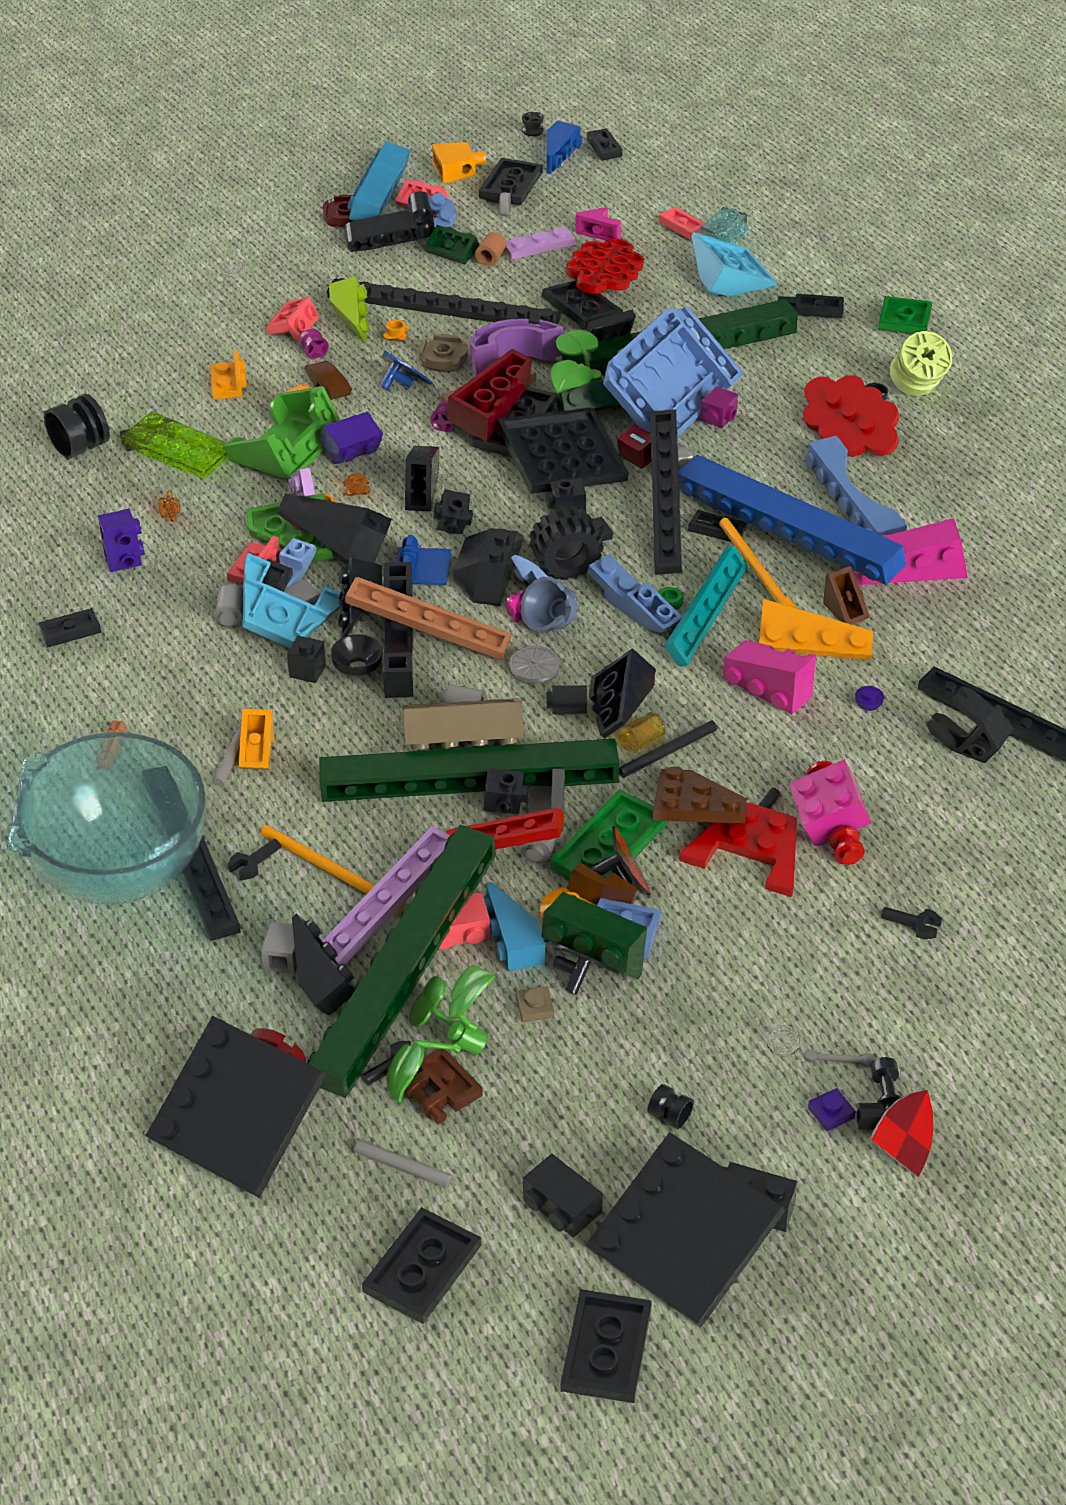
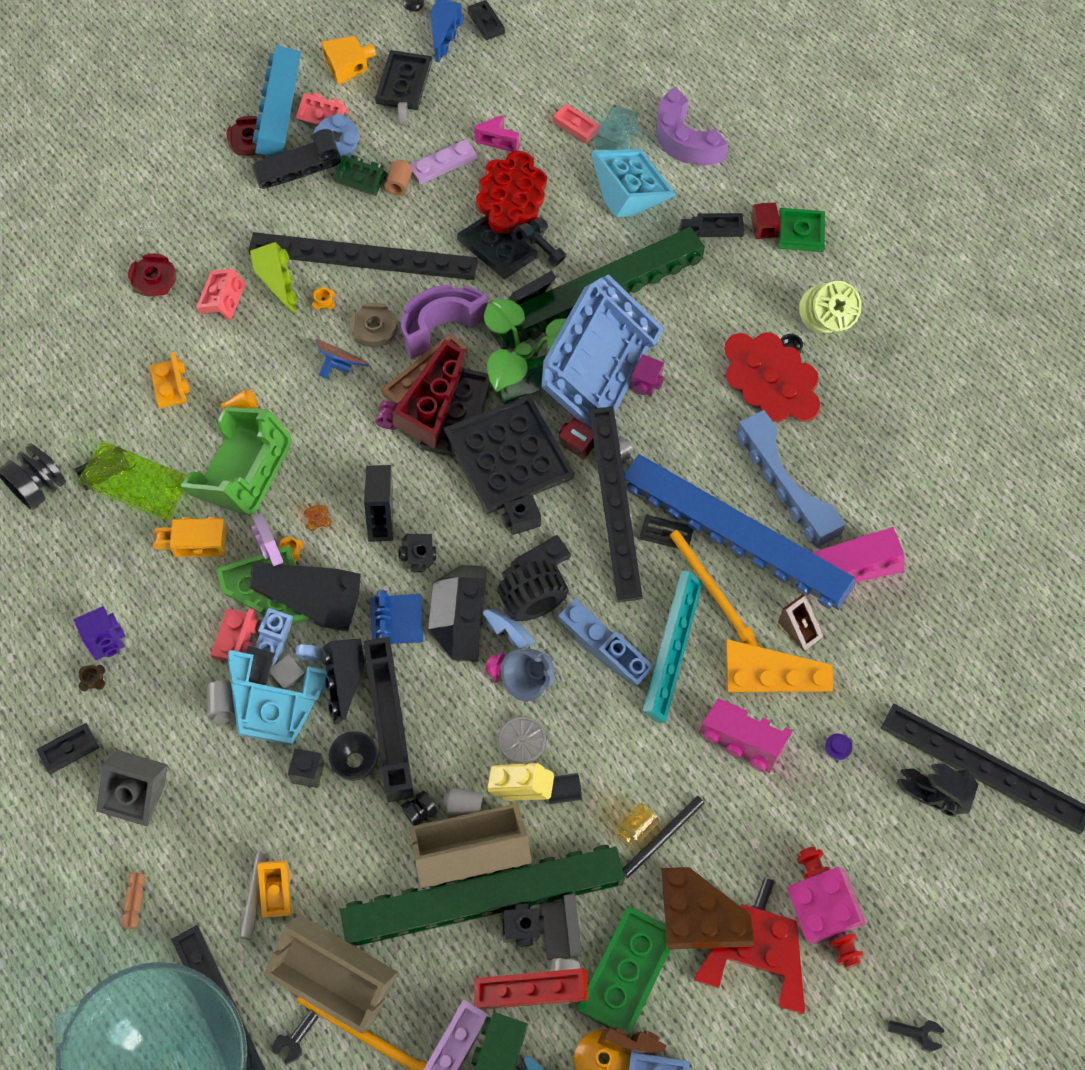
camera: 10 degrees left, 20 degrees up
(104, 580) = (88, 671): none -> dark brown plate
(125, 659) = (130, 787): none -> dark grey slope
(169, 506) = (139, 569): clear orange plate -> none
(227, 302) = (155, 286): none -> dark red plate
(227, 487) = (193, 537): none -> light orange brick
(301, 800) = (330, 973): none -> dark tan piece
(313, 343) = (246, 327): magenta wheel -> none
(326, 577) = (308, 652): none -> light blue tile
(330, 377) = (269, 374): reddish brown slope -> none
(351, 437) = (304, 459): dark purple brick -> none
(421, 695) = (412, 808): none -> black wheel
(428, 618) = (415, 704): nougat plate -> none
(526, 680) = (520, 782): none -> light yellow brick
(620, 690) = (611, 777): black wedge -> none
(625, 297) = (534, 233): none -> black bar
(625, 857) = (650, 1015): shield -> none
(672, 596) = (636, 635): green tile -> none
(794, 243) = (680, 140): none -> medium lavender brick
(867, 304) = (765, 220): none -> dark red brick

